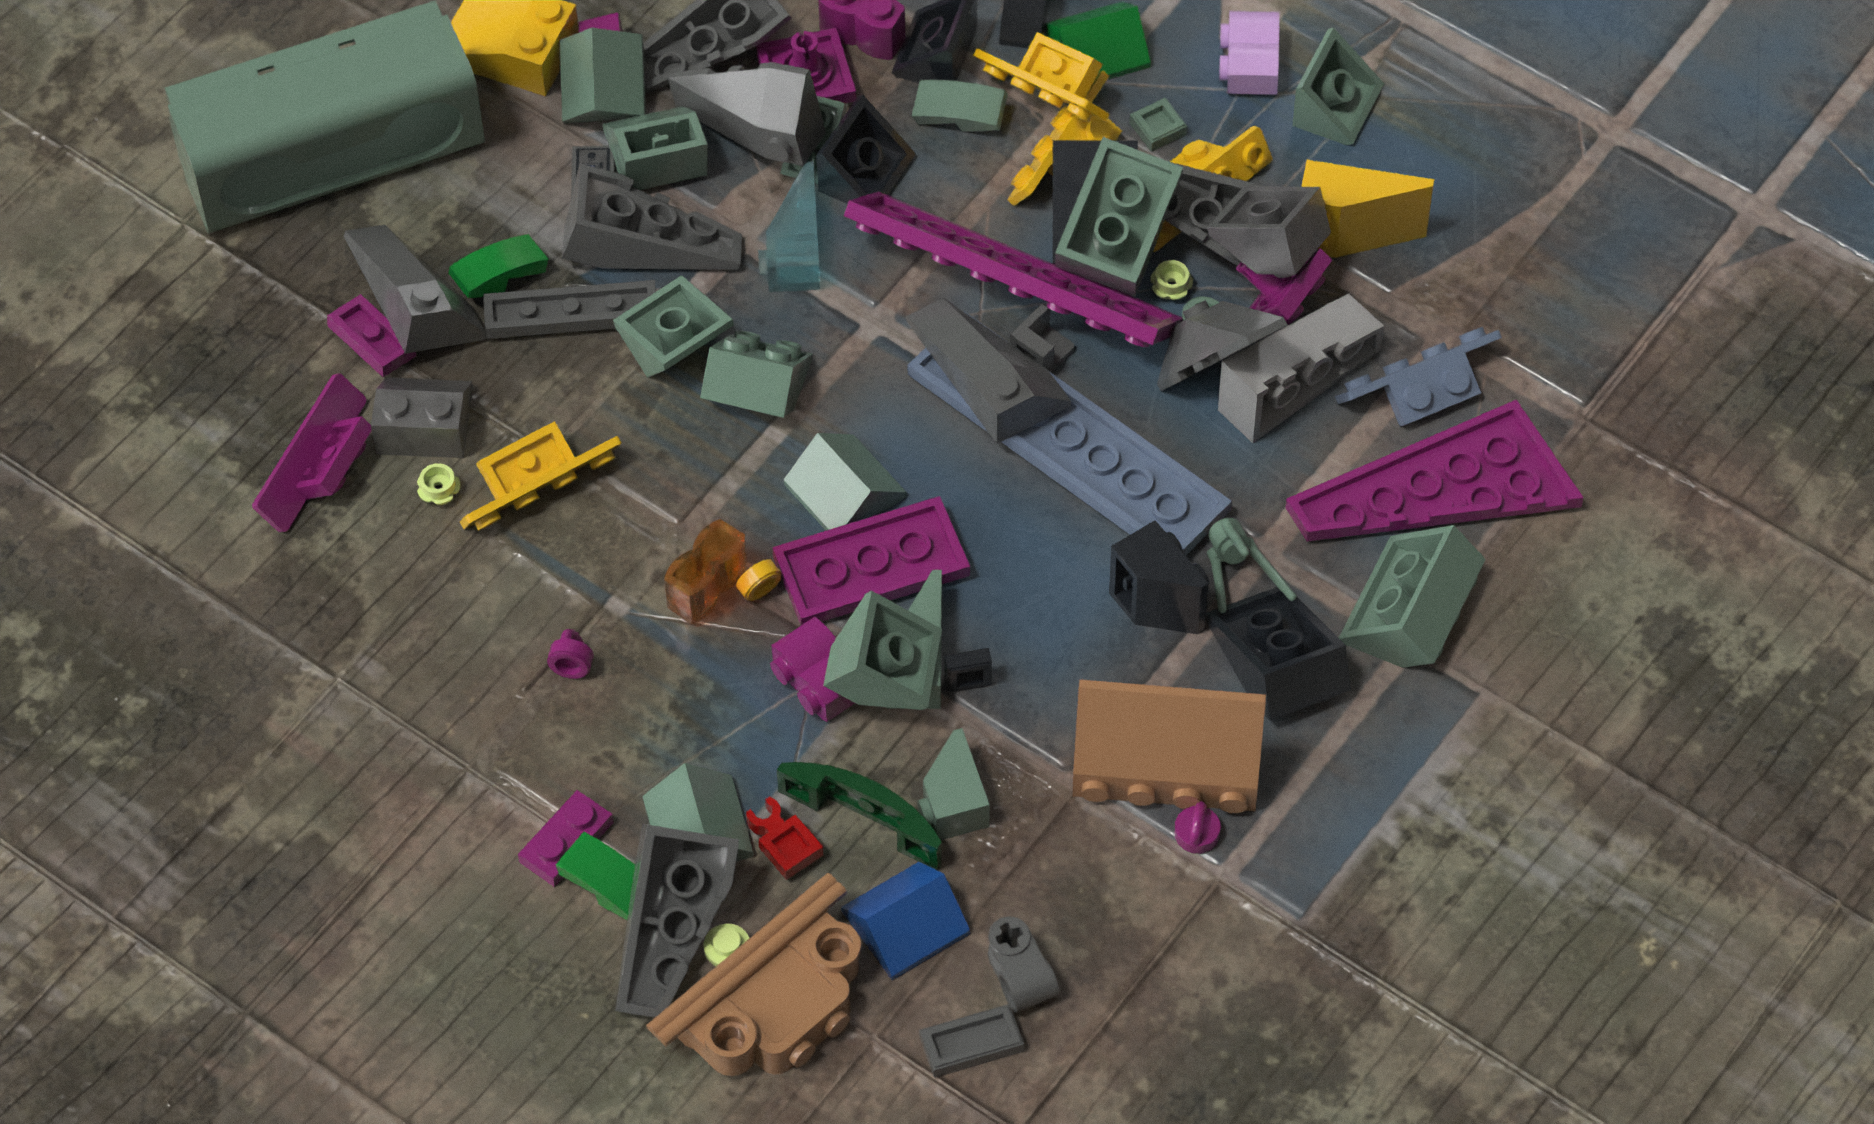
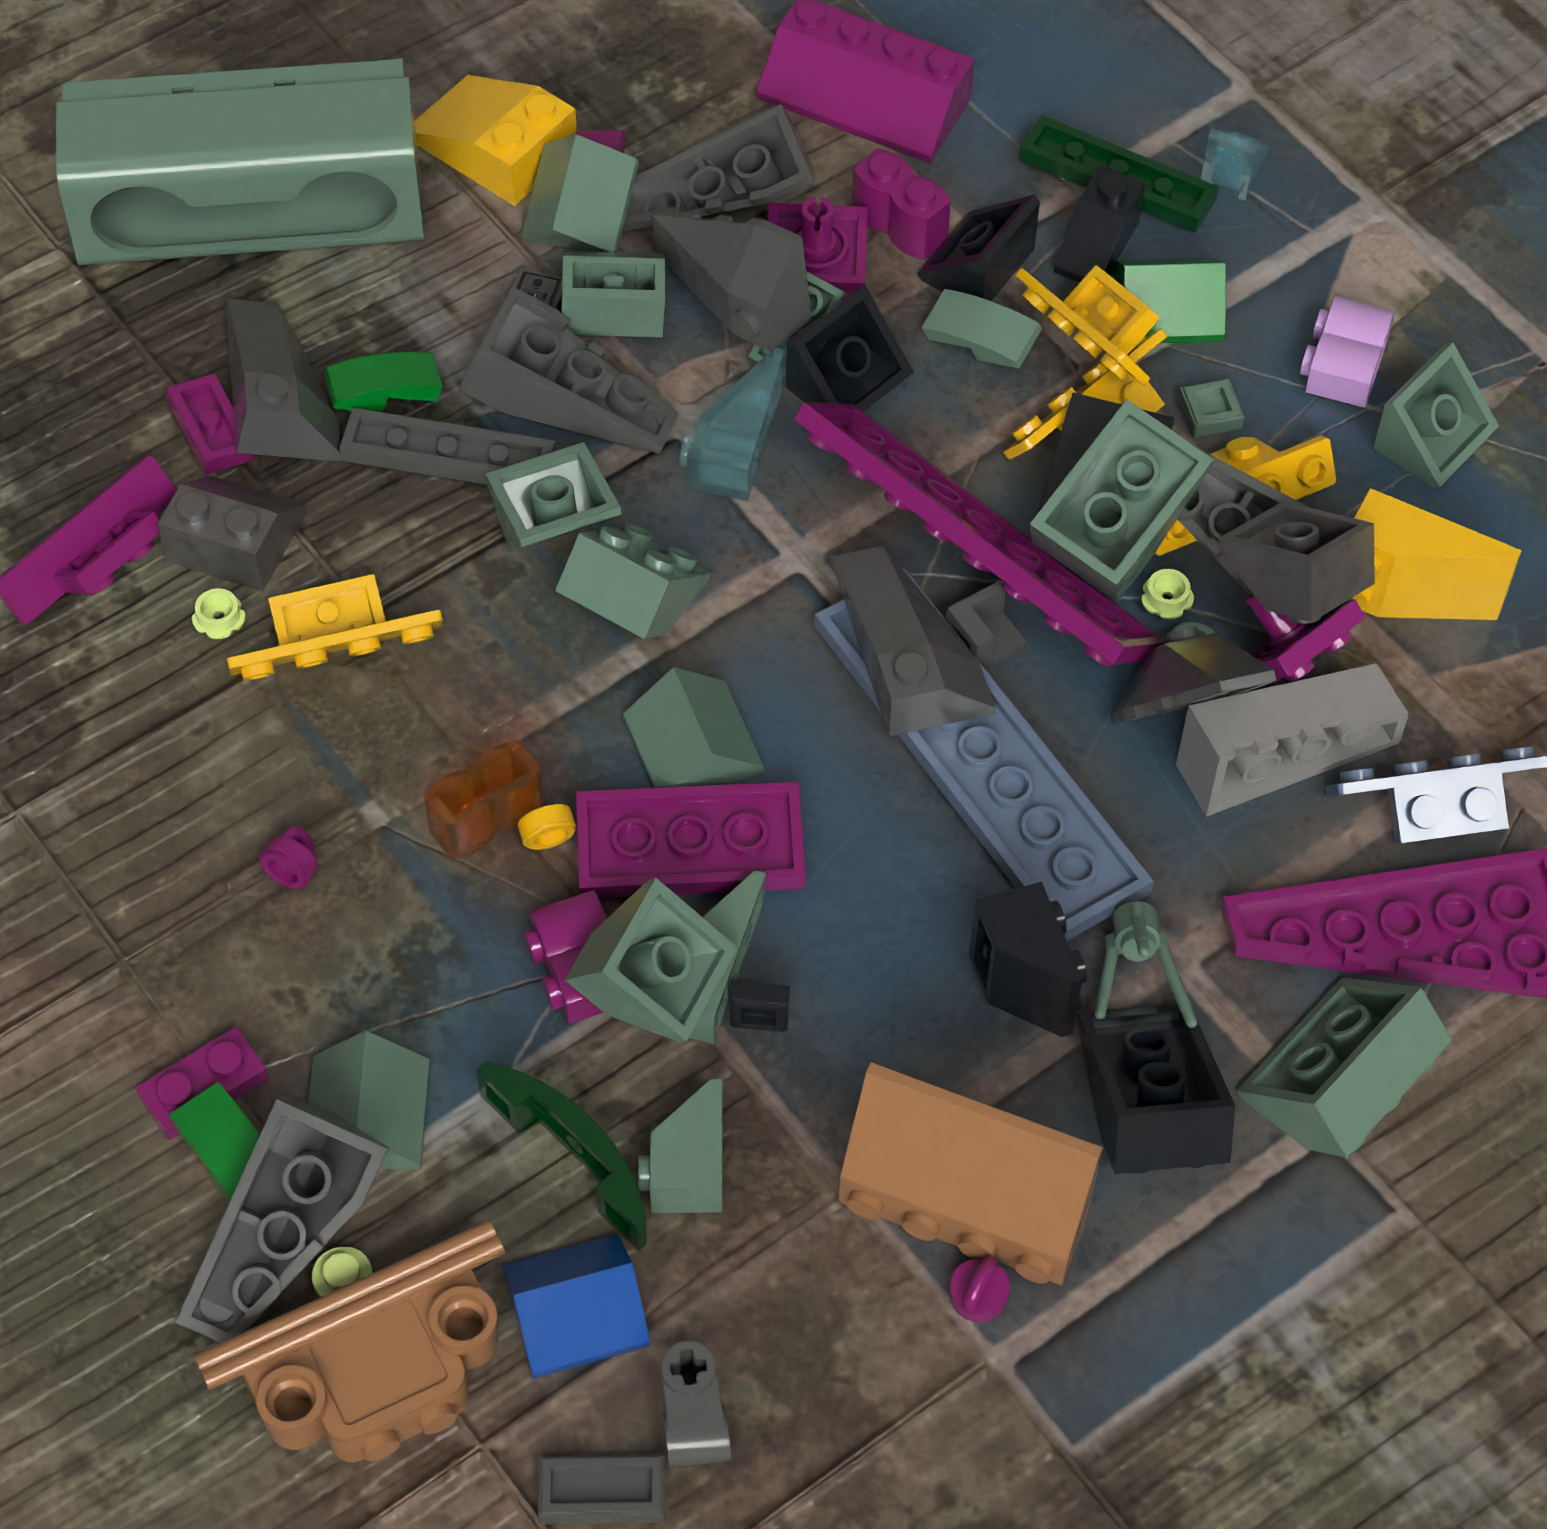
camera: 15 degrees right, 0 degrees up
(784, 843) = (461, 1163): red plate -> none

